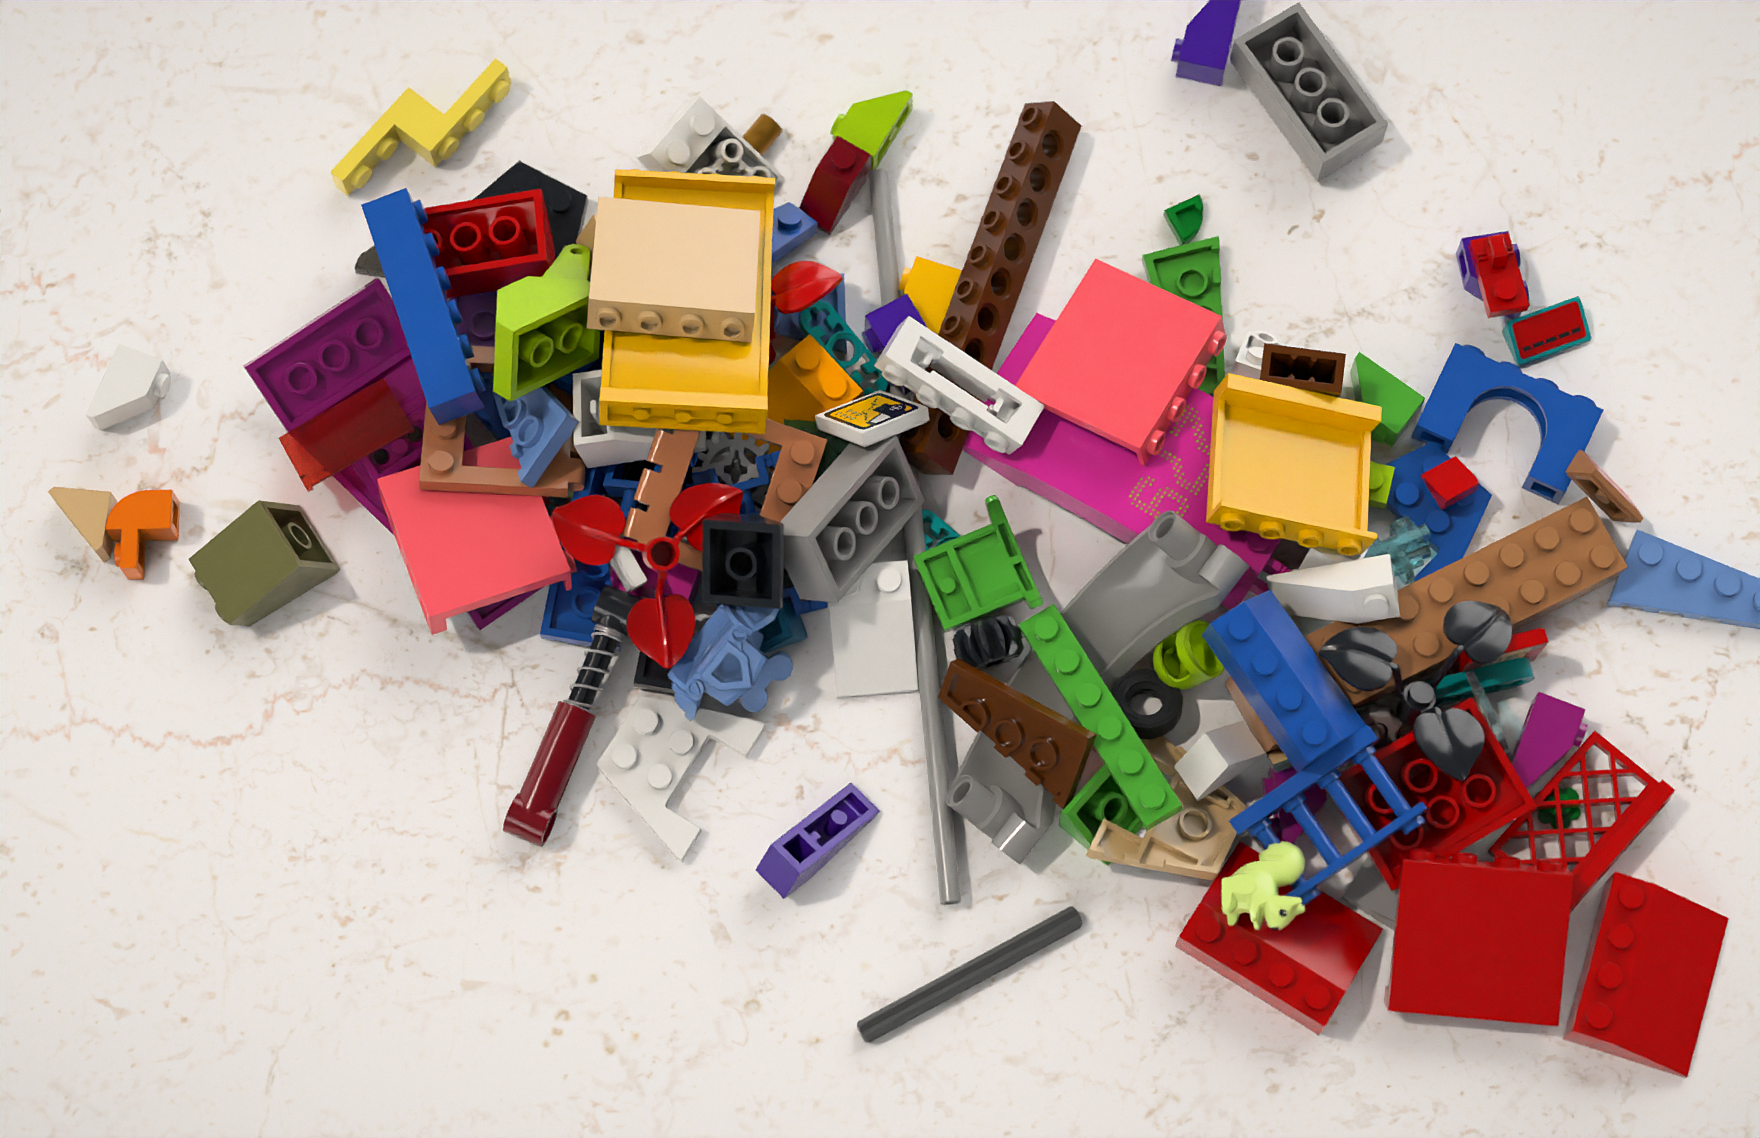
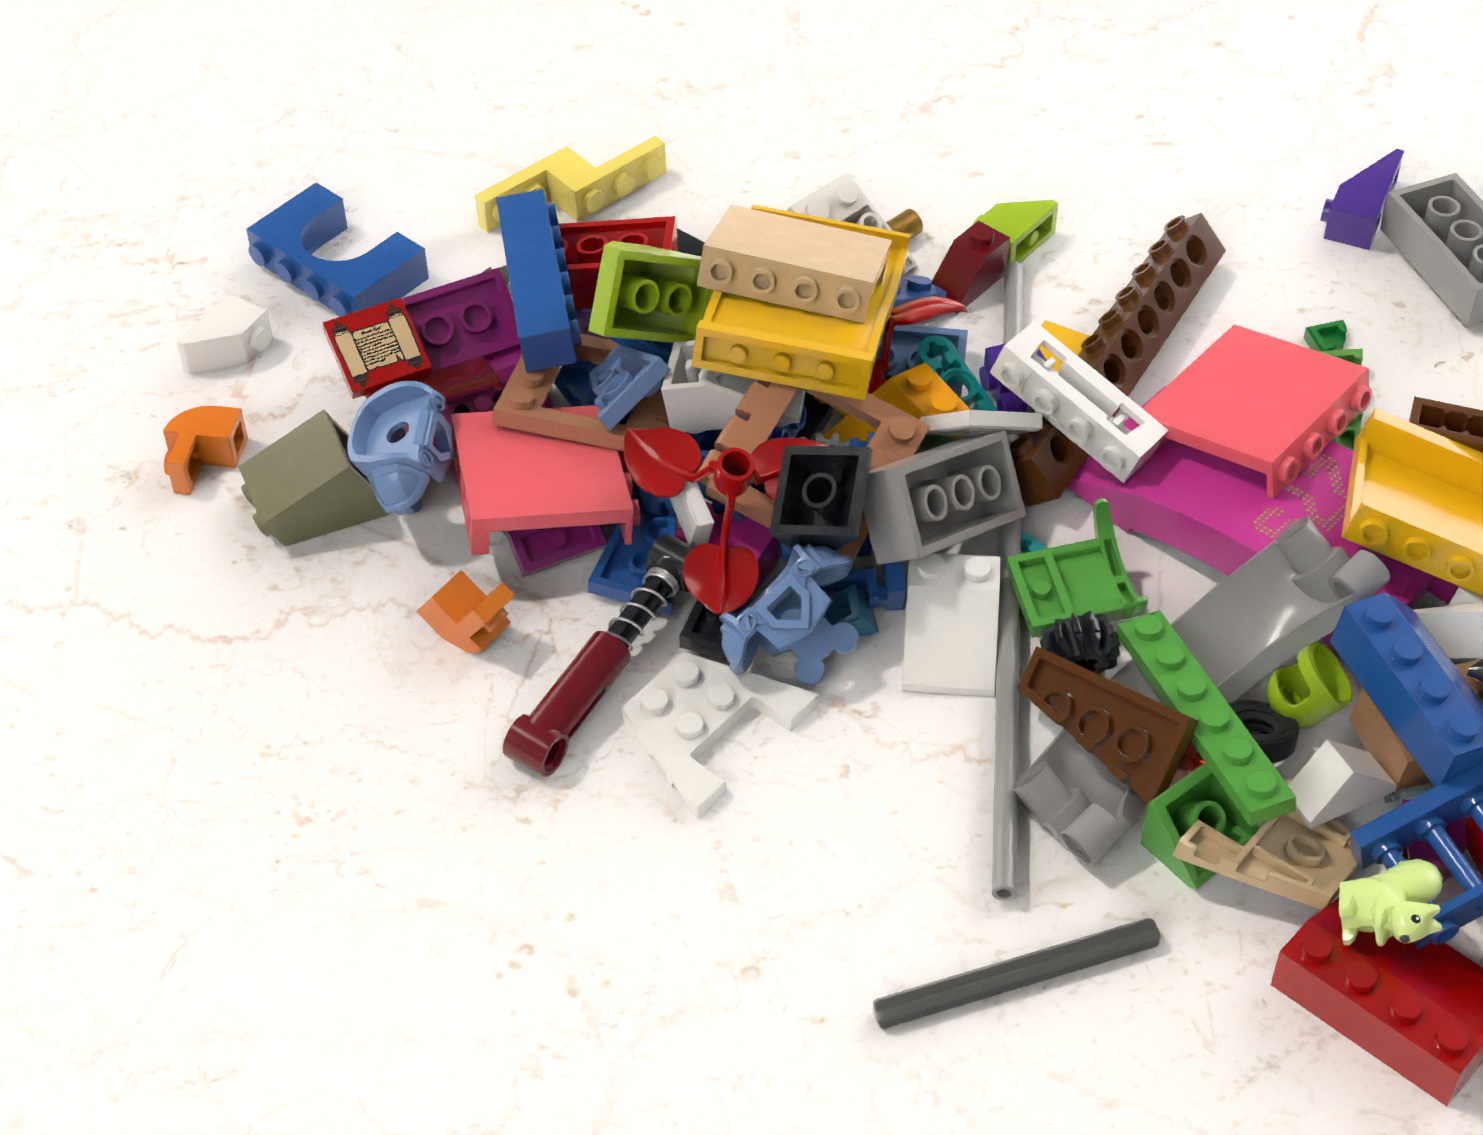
camera: 10 degrees right, 25 degrees down
(89, 514) = (145, 421): tan slope -> none
(236, 304) = (300, 226): none -> blue arch
(284, 397) = (376, 347): none -> tile
(336, 530) = (399, 461): none -> medium blue piece
(438, 688) = (466, 614): none -> orange brick
(815, 840) = (850, 809): dark purple slope -> none

